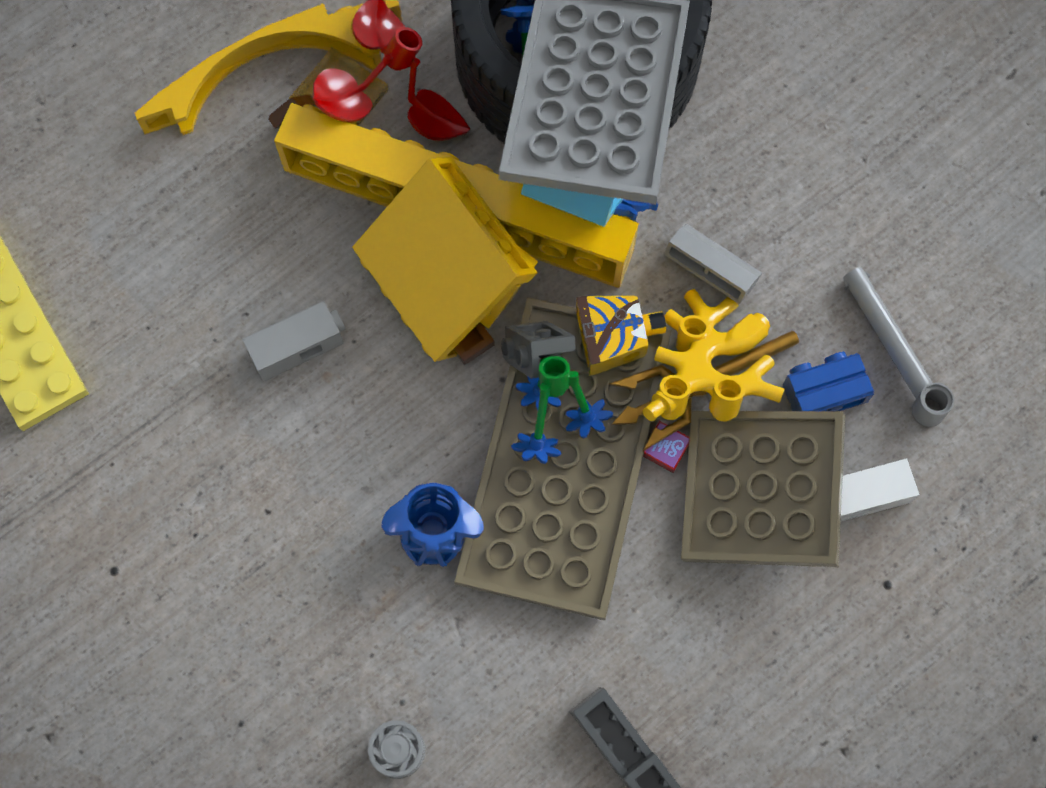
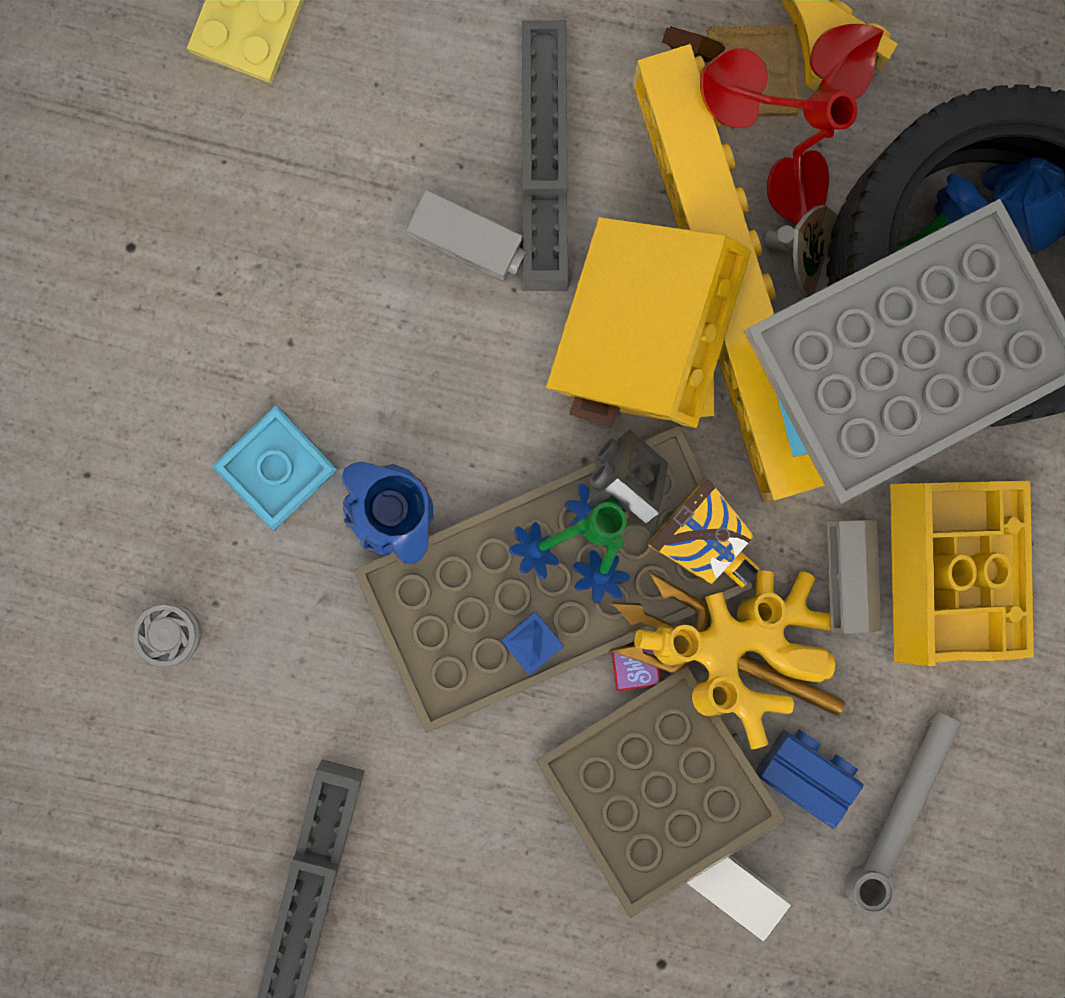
camera: 50 degrees right, 15 degrees up
(286, 256) = (544, 155): none -> dark grey slope
(342, 586) = (275, 468): none -> medium azure tile
(477, 136) = (807, 243): none -> shield
(598, 497) = (532, 643): none -> blue tile
(760, 197) = (961, 571): none -> yellow piece

